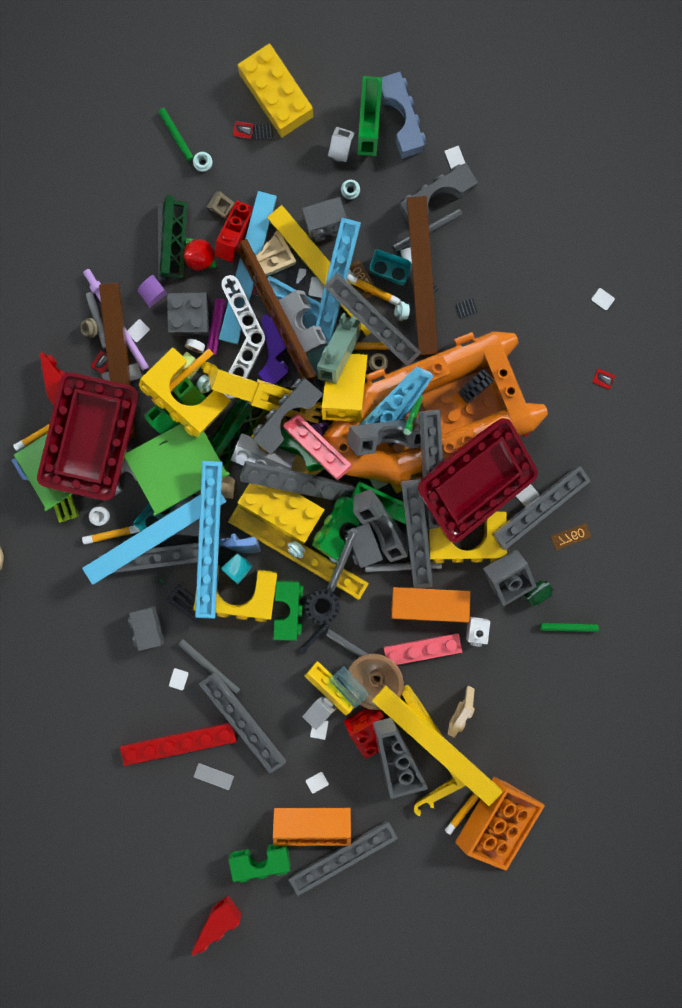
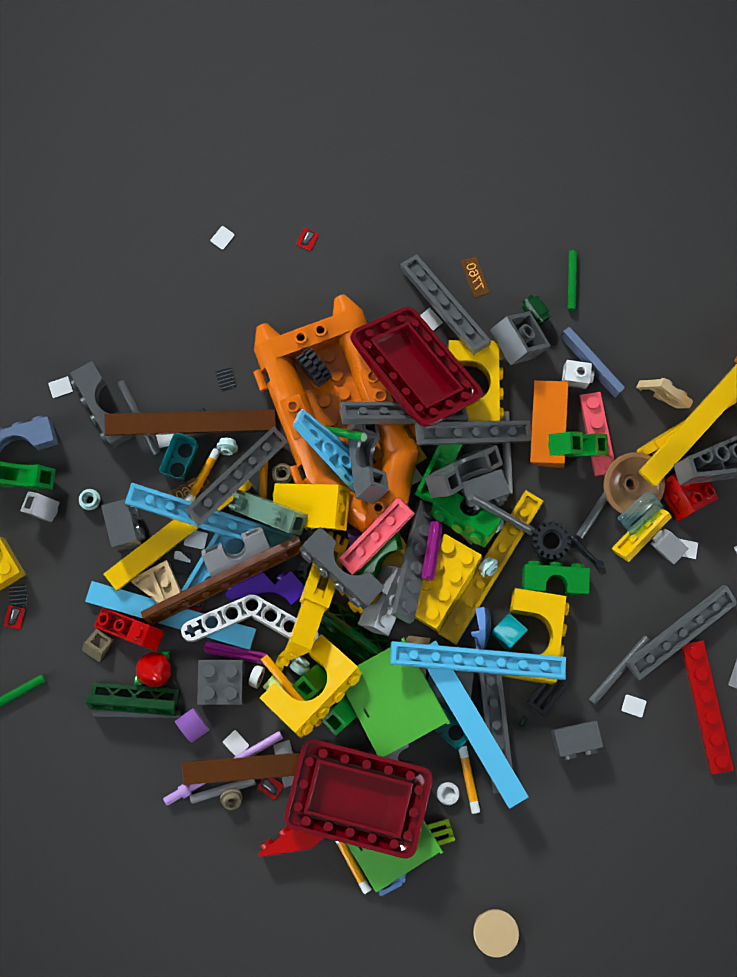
camera: 90 degrees left, 10 degrees down
(202, 156) = (41, 663): light aqua plate -> none
(307, 497) = (432, 550): none -> magenta axle
(408, 630) = (578, 445): none -> green arch
(496, 639) = (584, 353): none -> sand blue tile

